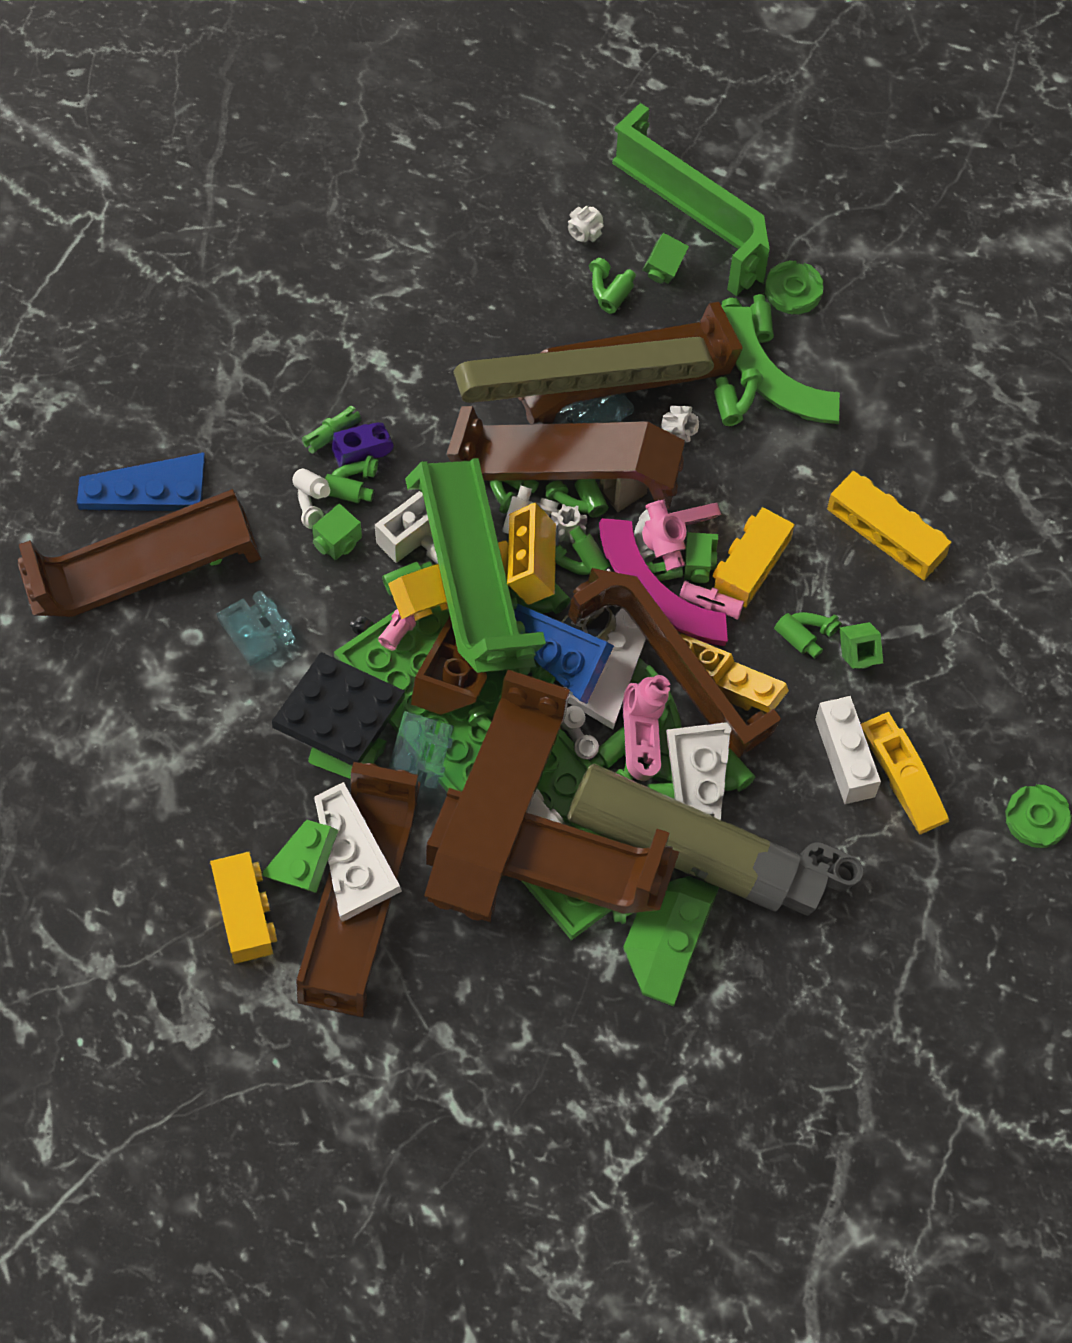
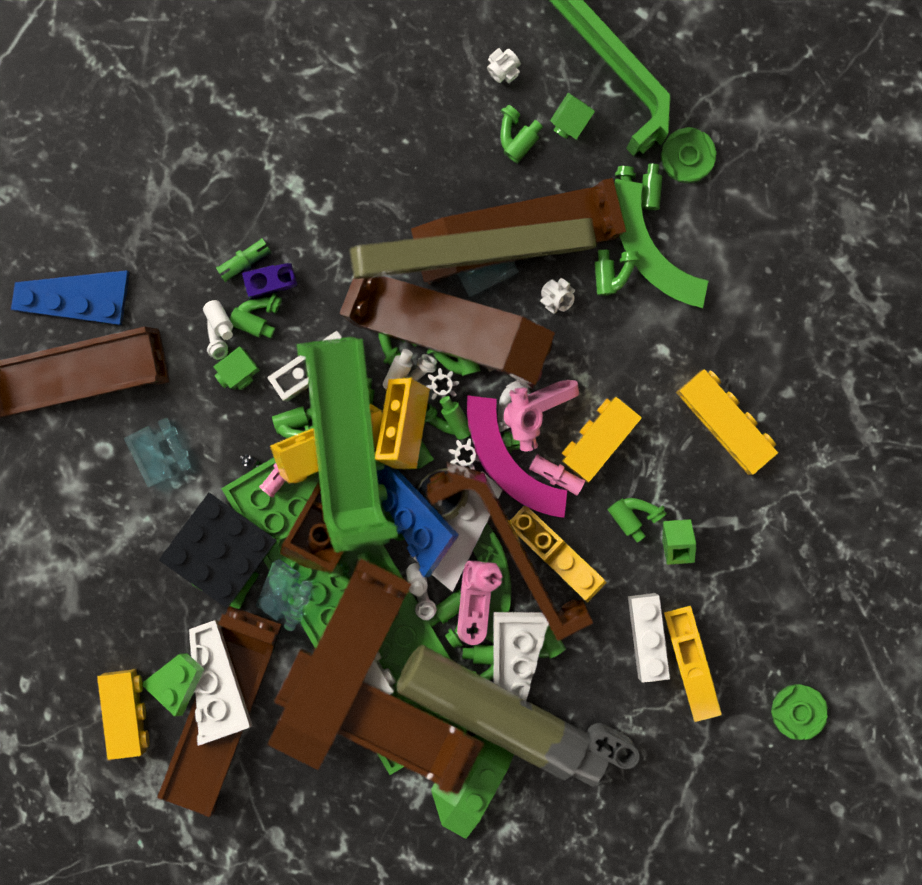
camera: 15 degrees right, 25 degrees up
(700, 556) = (553, 435): bright green brick -> none

